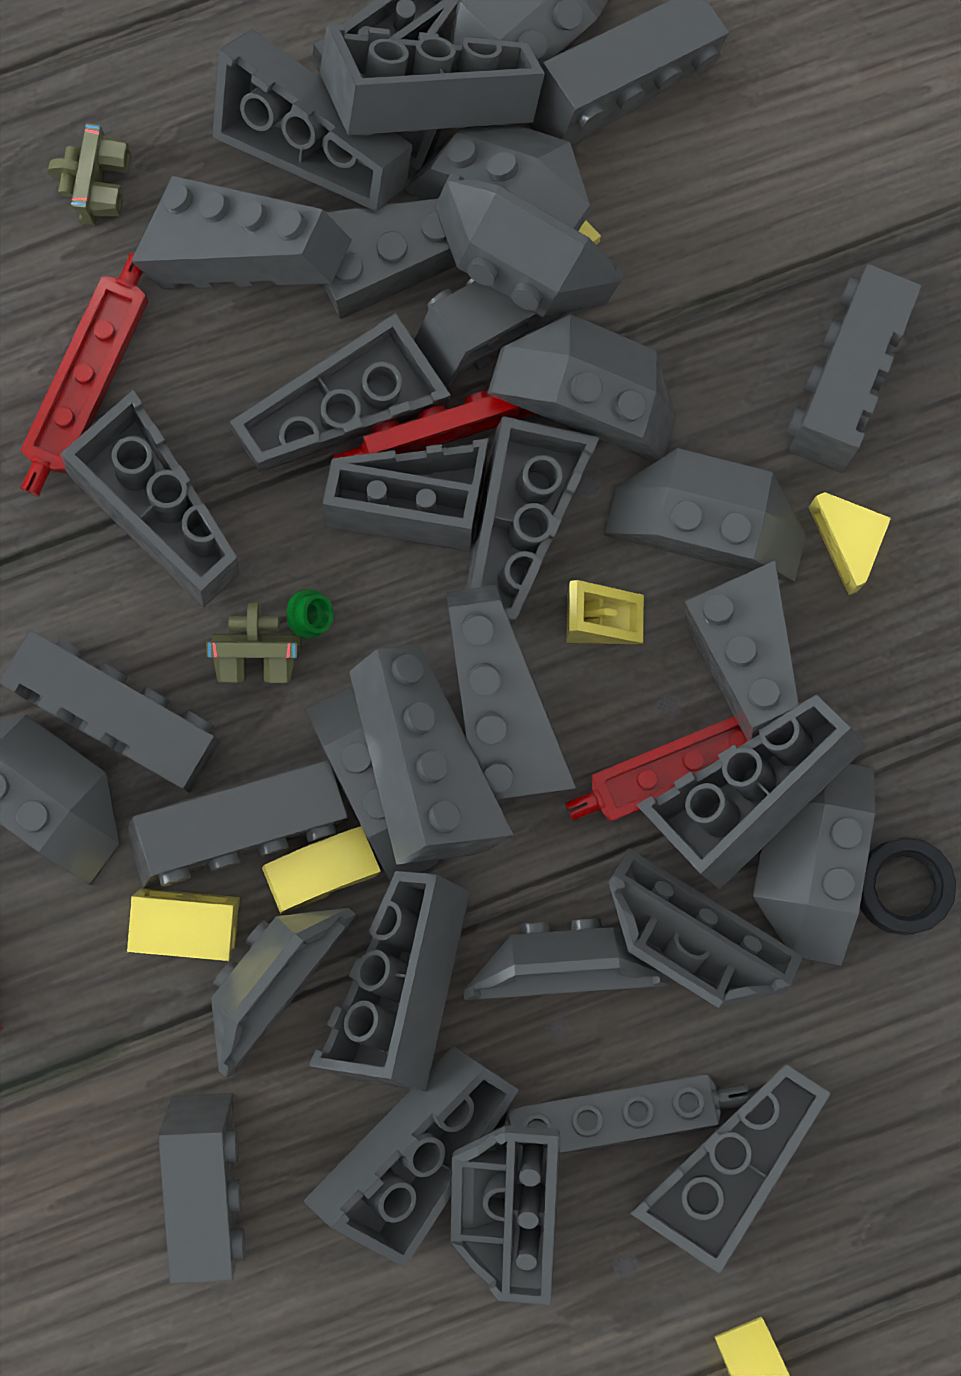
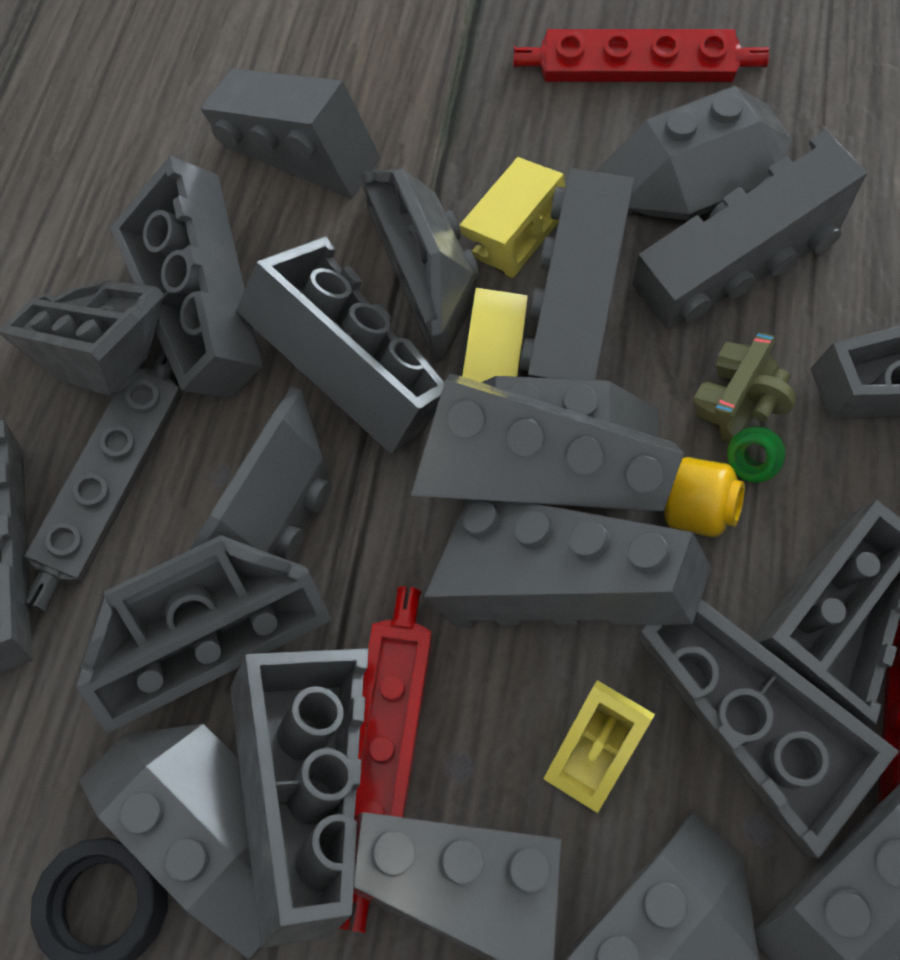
camera: 125 degrees right, 15 degrees down
(368, 628) = (704, 498): none -> yellow head

